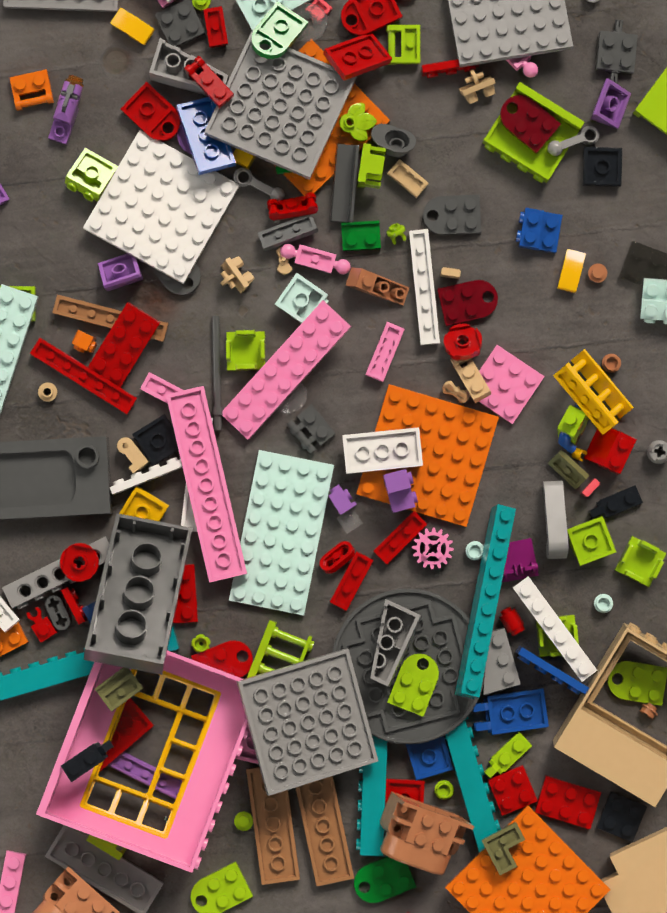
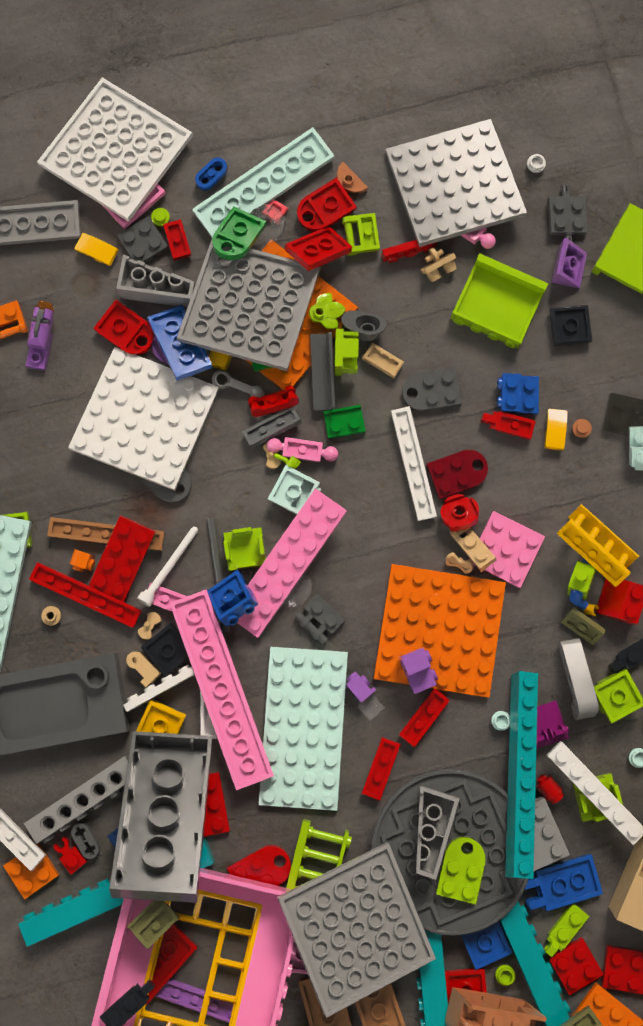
camera: 10 degrees left, 5 degrees down
(70, 568) = (94, 777): red plate -> none
(71, 597) = (97, 823): red plate -> none
(90, 175) = (70, 396): plate -> none
(119, 272) = (110, 487): medium lavender slope -> none
(144, 385) = (147, 596): none -> white piece
(146, 408) = (145, 631): none -> tan piece
(200, 638) = (230, 853): lime plate -> none
(209, 82) = (176, 289): red plate -> none
(227, 398) = (232, 599): none -> blue plate
(233, 276) = (223, 476): tan hips -> none
(303, 271) = (293, 462): none -> lime hand
(337, 557) = (363, 745): red plate -> none
(377, 285) = (366, 468): nougat slope -> none
(382, 450) = (395, 631): white plate -> none
(385, 352) = (383, 532): bright pink plate -> none
(396, 230) = (377, 412): lime plate -> none
(426, 541) = (464, 717): bright pink gear -> none
(450, 273) = (437, 446): tan tile -> none
(526, 259) = (510, 424): none -> red hinge
(530, 122) = (494, 293): dark red plate -> none
(556, 147) = (523, 312): light grey piece -> none
(557, 675) = (591, 834): blue plate -> none
(586, 492) = (607, 642): coral tile -> none
(611, 363) = (608, 514): nougat plate -> none

